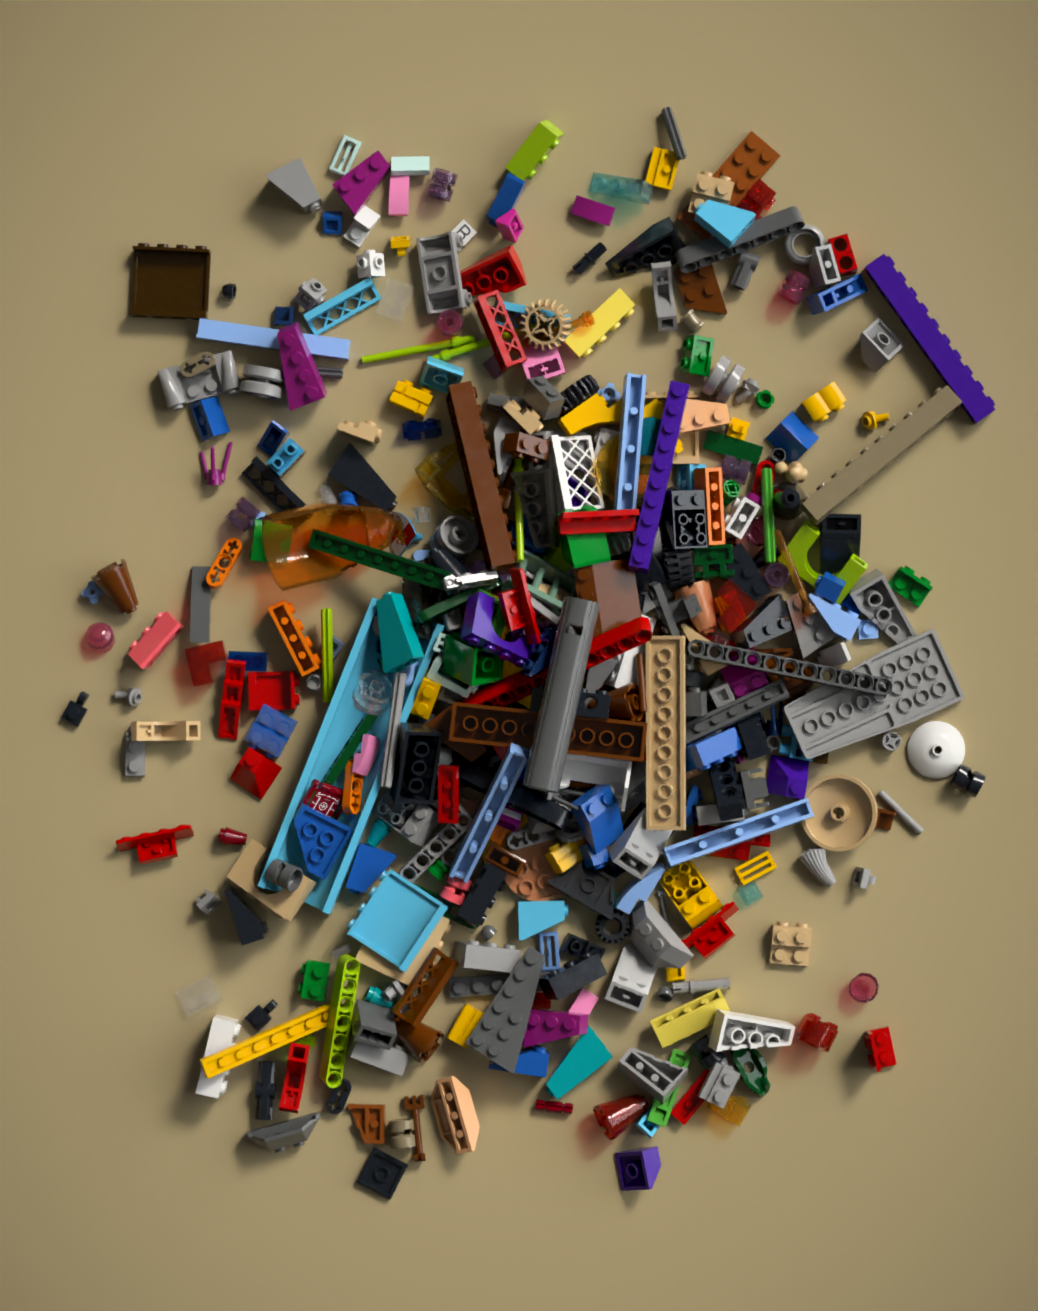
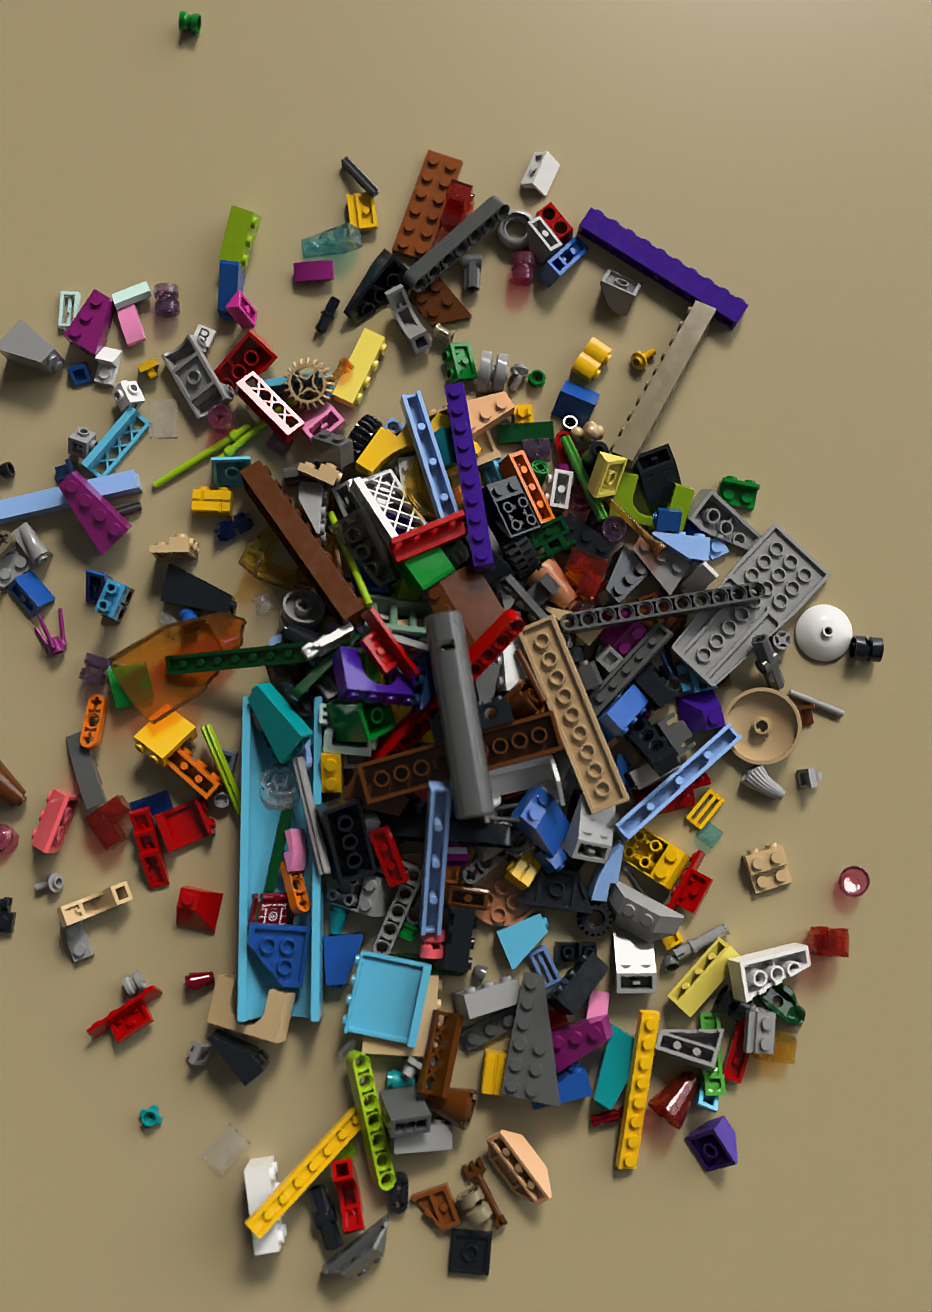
camera: 30 degrees left, 5 degrees down
(143, 945) = (146, 1120): none -> teal plate
(172, 816) = (134, 983): none -> light grey wheel
(260, 1016) = (293, 1143): black plate -> none
(261, 384) = (64, 538): light grey wheel -> none
(270, 731) = (198, 863): blue plate -> none
(277, 483) = (100, 620): black fence -> none
(284, 606) = (164, 737): none -> yellow panel
(284, 875) = (259, 1000): dark grey wheel -> none
(315, 980) = (331, 1087): green bracket -> none
(404, 535) = (254, 627): shield -> none
(526, 447) = (333, 498): reddish brown brick -> none
(588, 1091) = (637, 1089): none -> yellow plate
(710, 188) = (415, 216): tan plate -> none
(723, 221) = (435, 228): medium azure slope -> none
(787, 524) = (606, 475): none -> light yellow slope
(851, 196) = (540, 172): none -> white panel
(868, 756) = (768, 662): none -> dark grey piece
(880, 1048) = (892, 932): red bracket -> none

